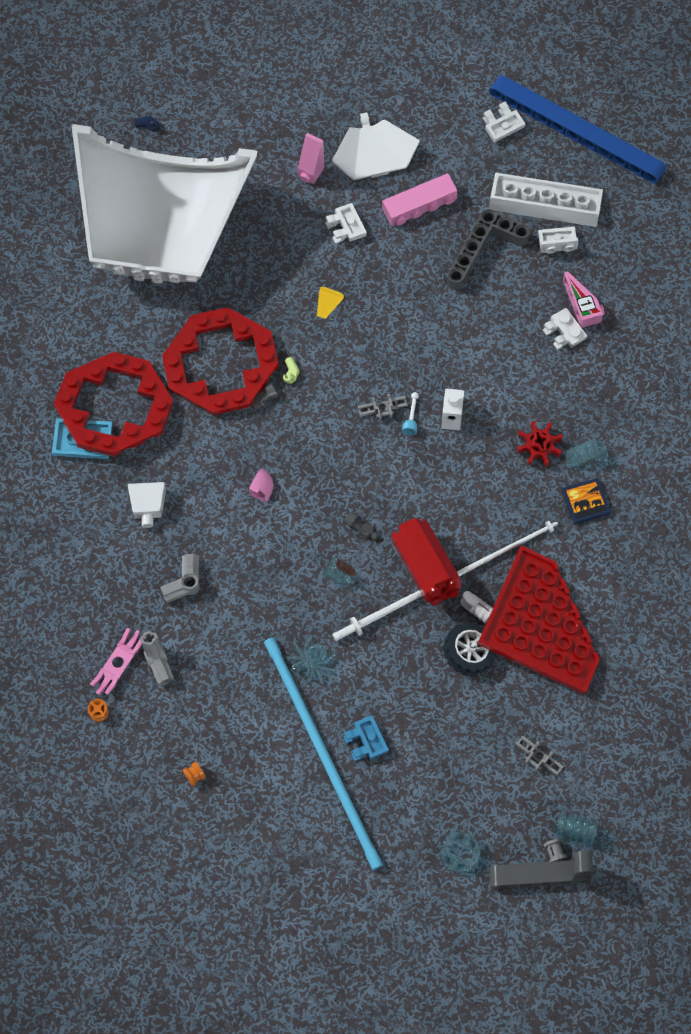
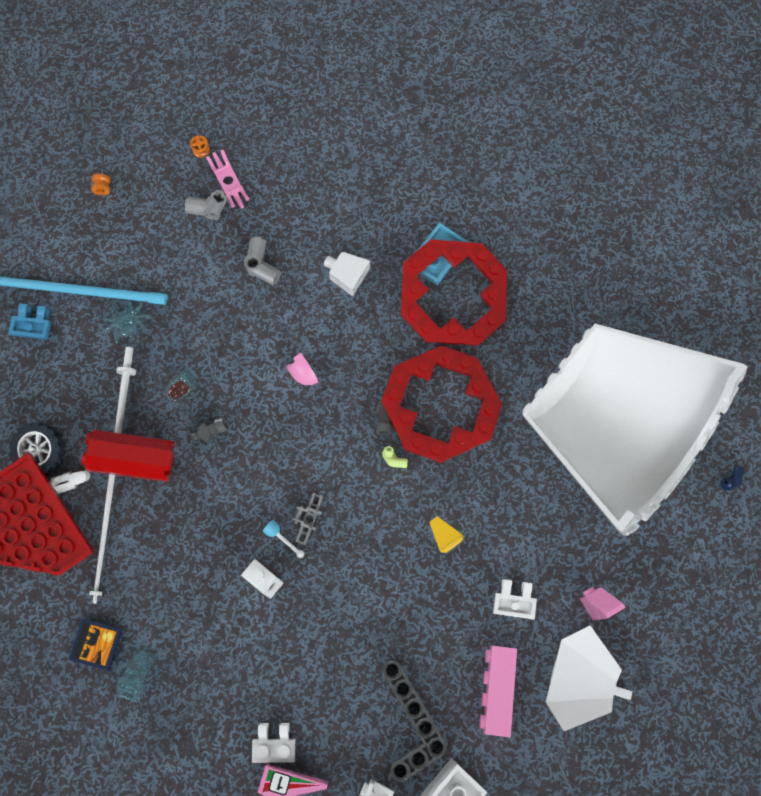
camera: 120 degrees right, 5 degrees up
(535, 448) = (177, 628): red gear -> none

